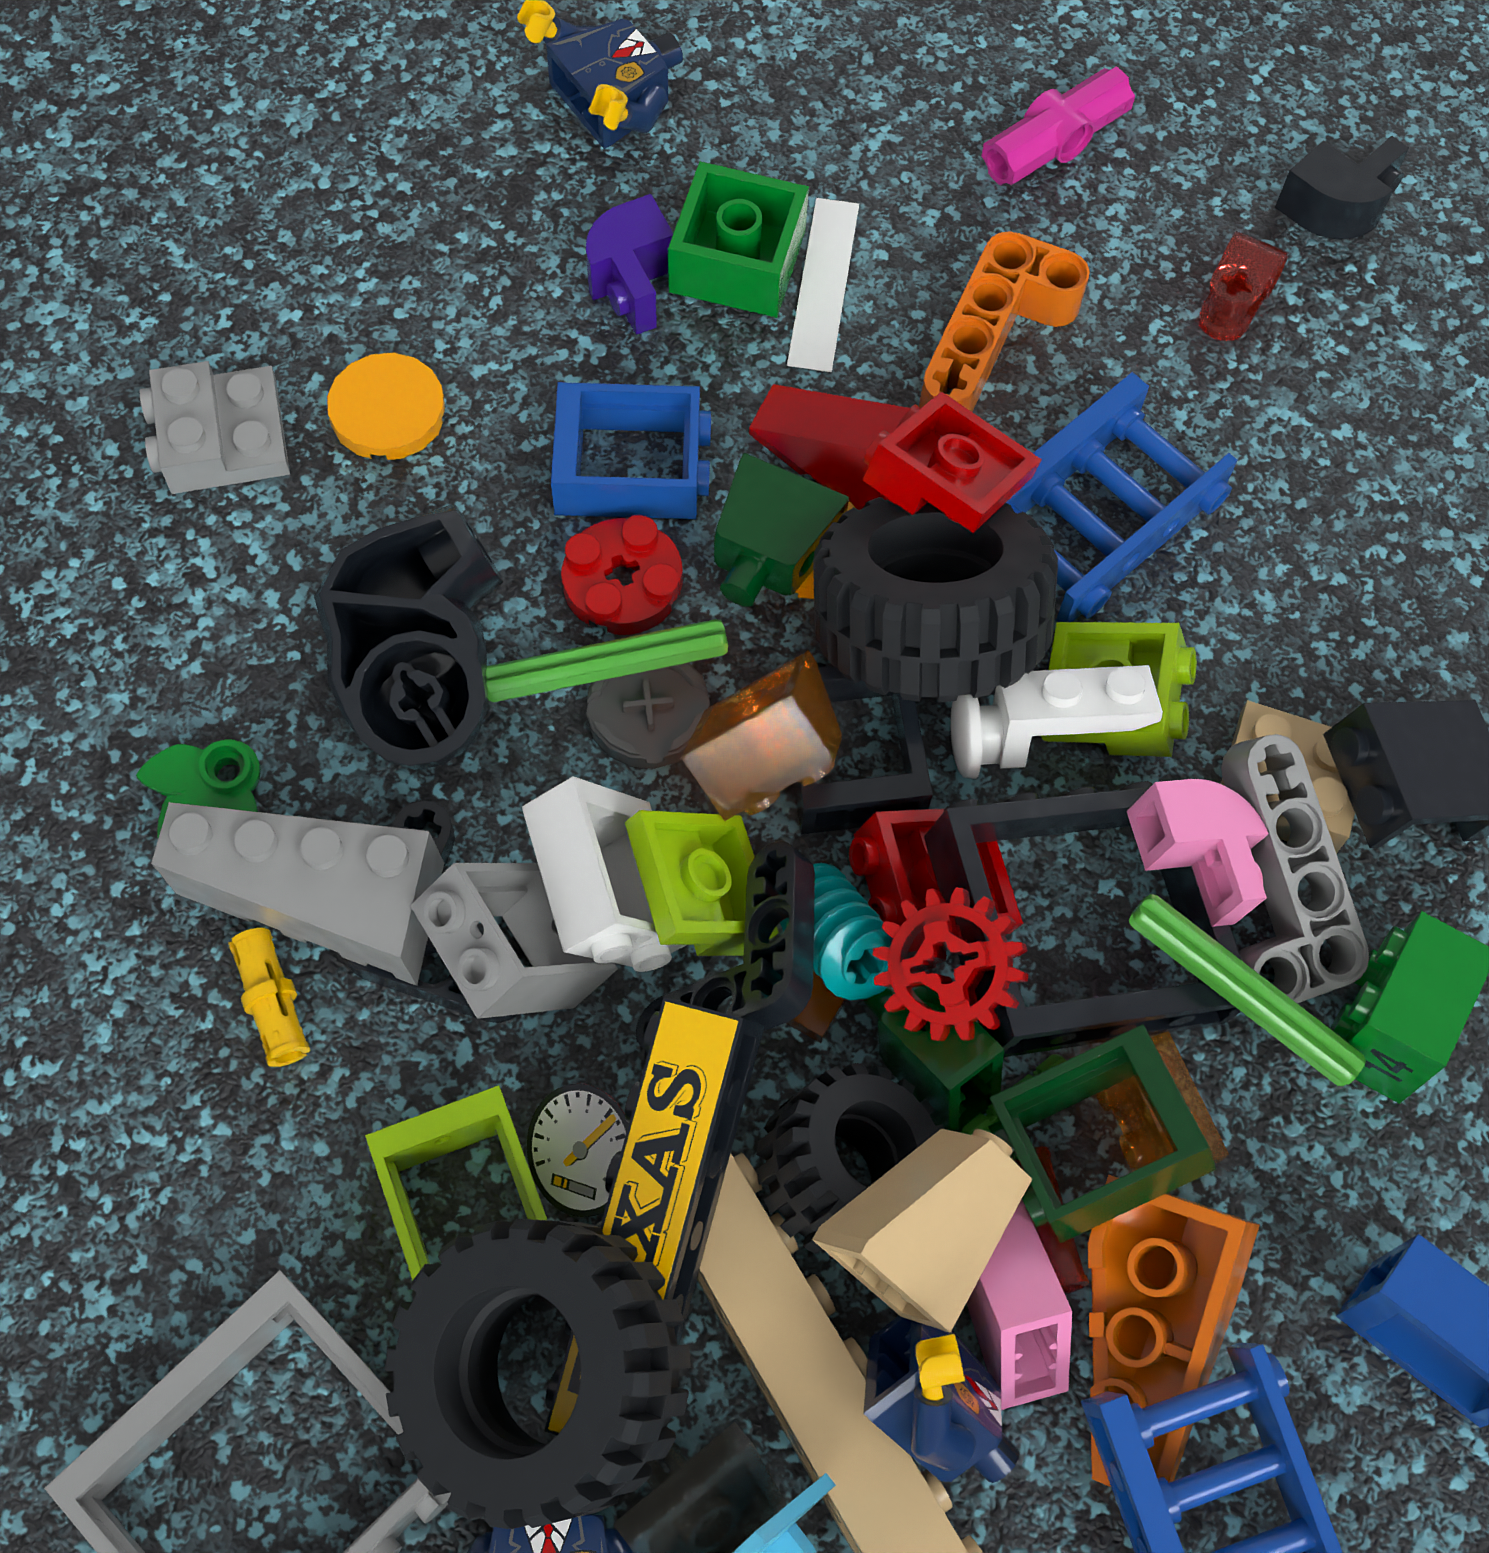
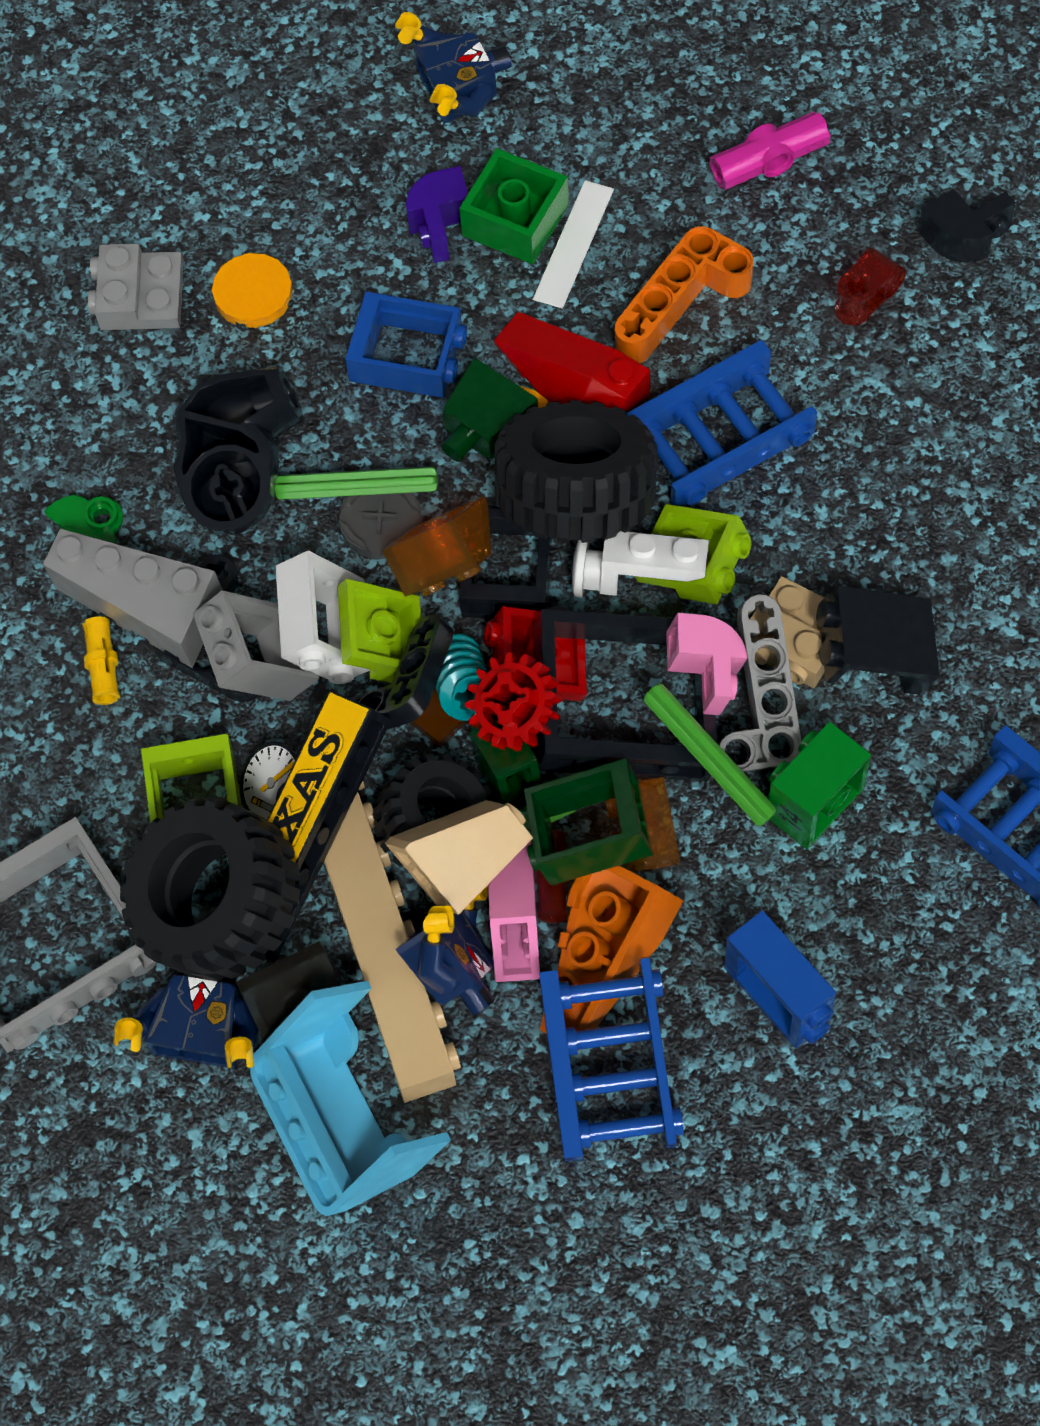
camera: 20 degrees right, 0 degrees up
(628, 544) = (380, 407): red plate -> none
(950, 461) = (602, 385): red plate -> none

